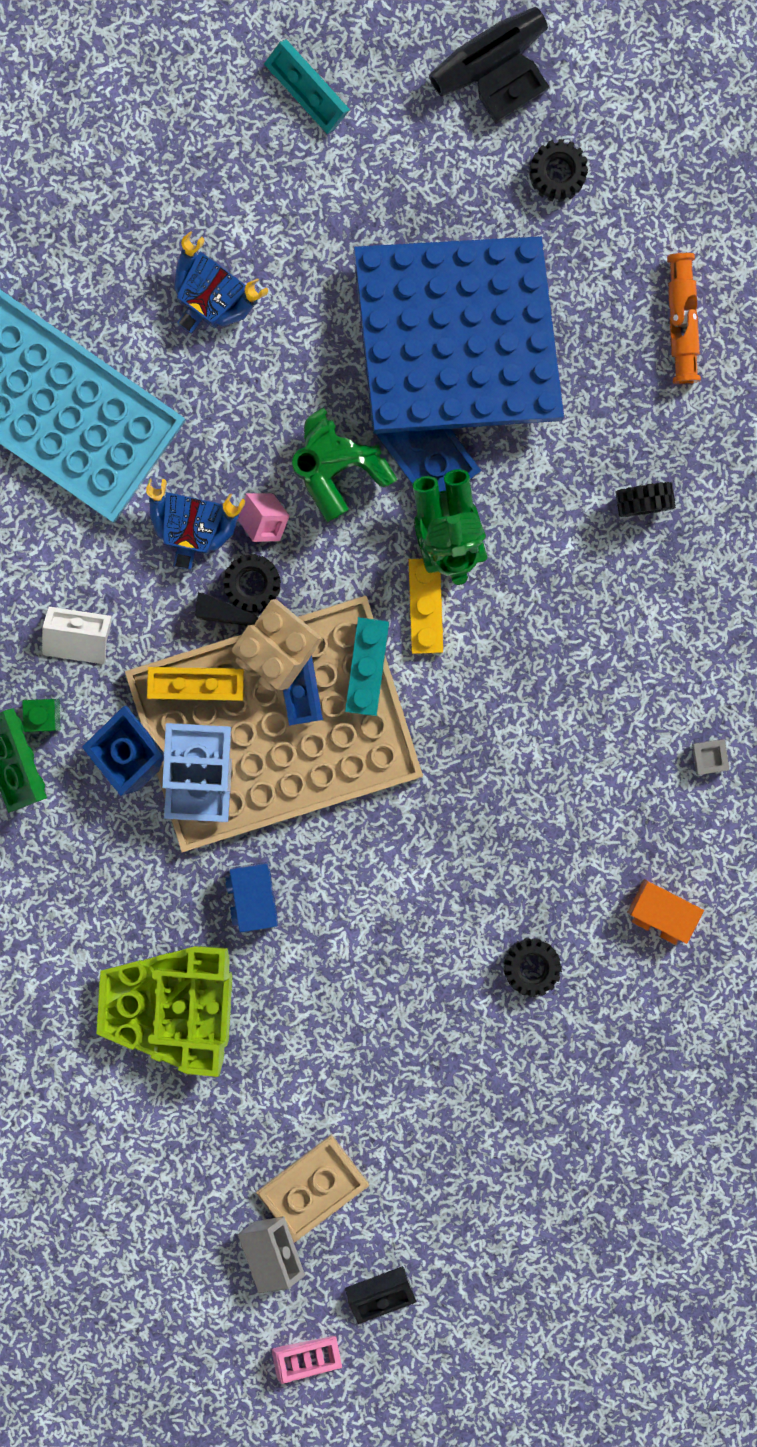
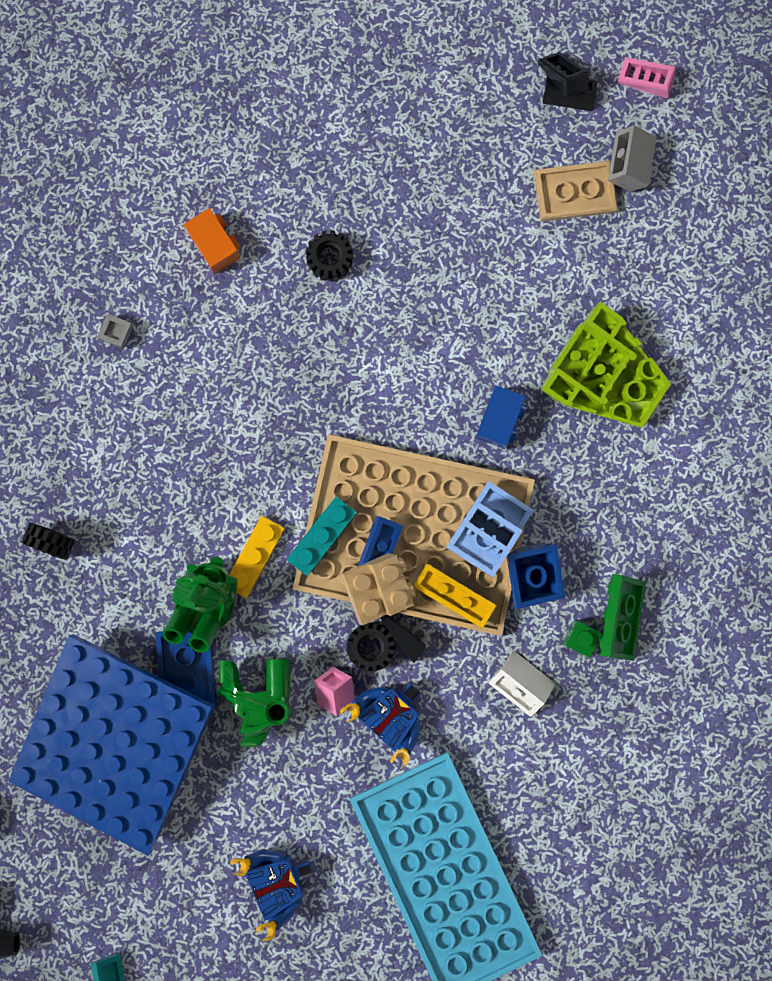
camera: 145 degrees left, 5 degrees down
(381, 1299) = (567, 76): none -> black slope

